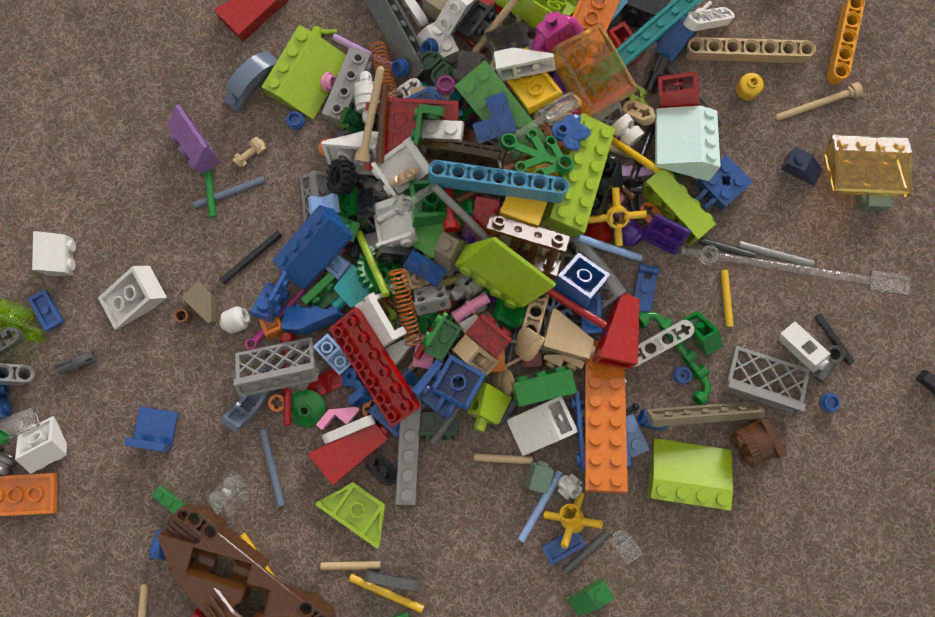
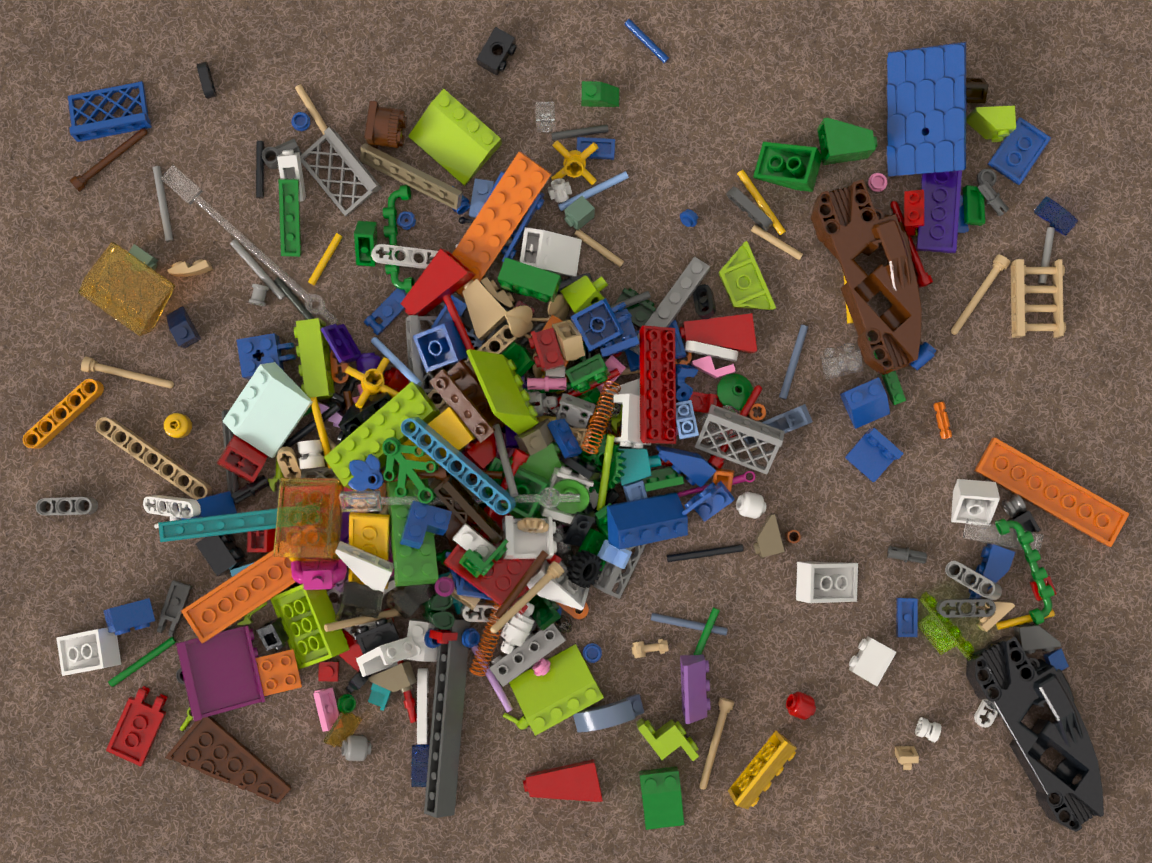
camera: 150 degrees left, 5 degrees up
(95, 183) = (801, 705): none -> red head
(98, 110) = (761, 771): none -> yellow slope
(109, 499) = (942, 420): none -> orange axle
(158, 145) = (725, 706): none -> tan piece
(169, 45) = (661, 797): none -> green slope
(186, 472) = (866, 402): none -> blue slope
(189, 88) = (668, 738): none -> lime bracket
(330, 127) = (564, 624): none -> clear smoke plate
(390, 228) = (575, 487): none -> bright green dish
(420, 48) = (443, 636): none -> red plate
(441, 536) = (689, 218): none -> blue plate
(713, 588) = (501, 41): none -> black brick
(760, 232) = (258, 295): none -> light grey bush
(782, 312) = (289, 217): none -> green plate
(829, 420) = (311, 108): none -> tan bar
(831, 217) = (183, 269): none -> tan slope
(891, 257) = (162, 204): none -> light grey bar

